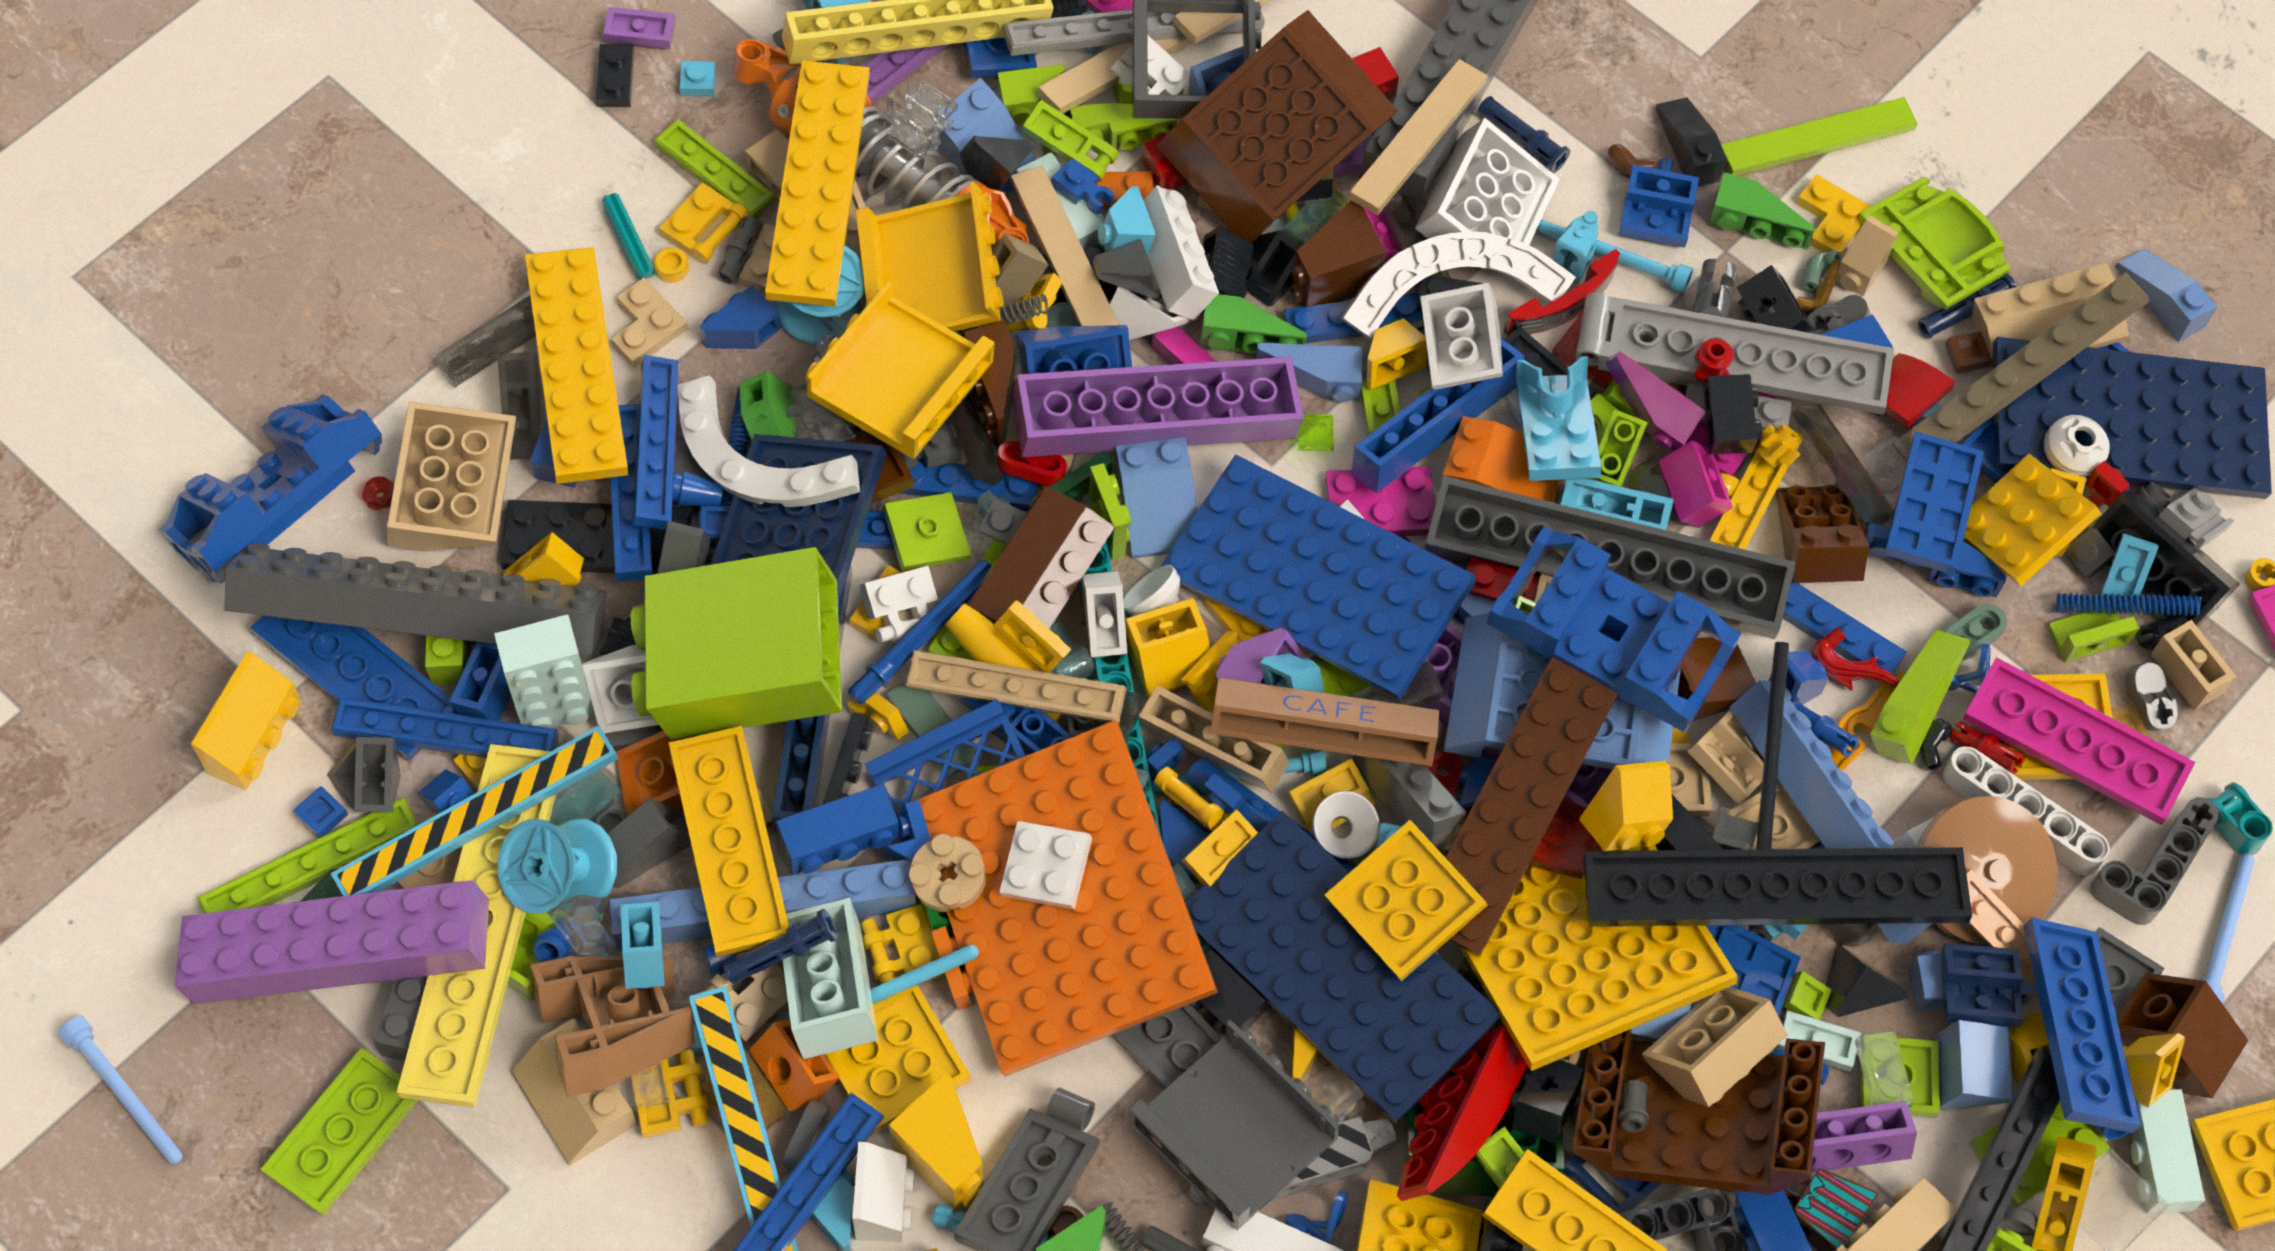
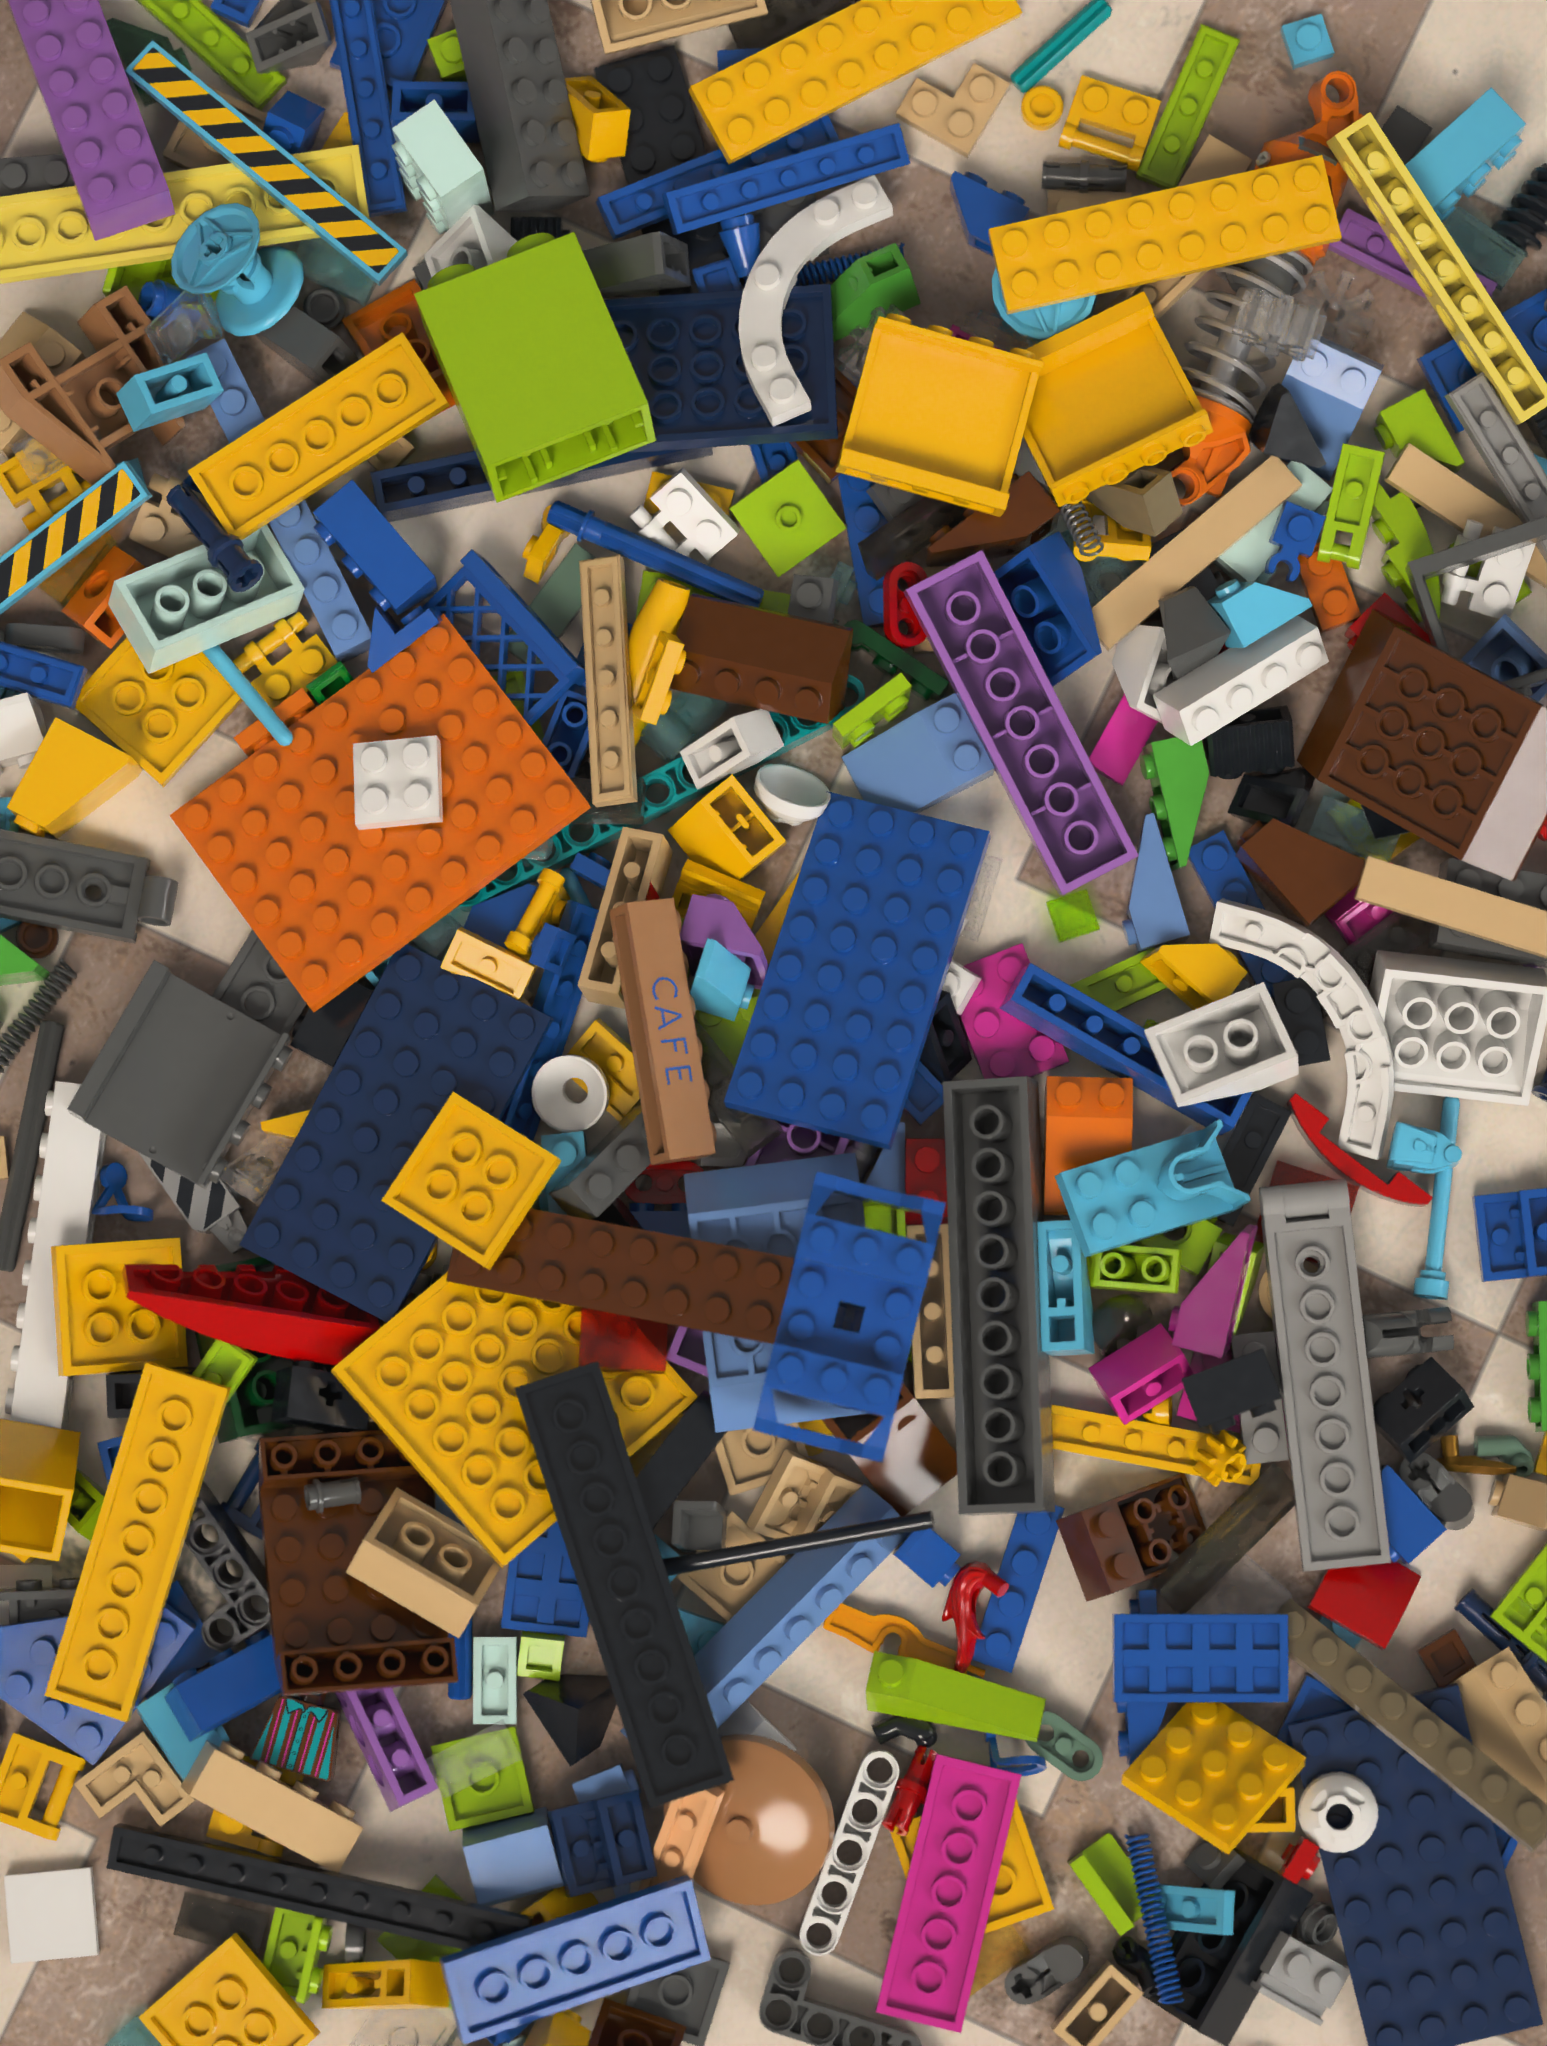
camera: 80 degrees right, 20 degrees up
(847, 768) = (467, 532): black plate -> none
(950, 894) = (352, 660): tan plate -> none
(1631, 807) = (661, 1399): yellow slope -> none
(1713, 359) = (1281, 1362): red brick -> none
(1828, 732) = (872, 1598): blue pin -> none

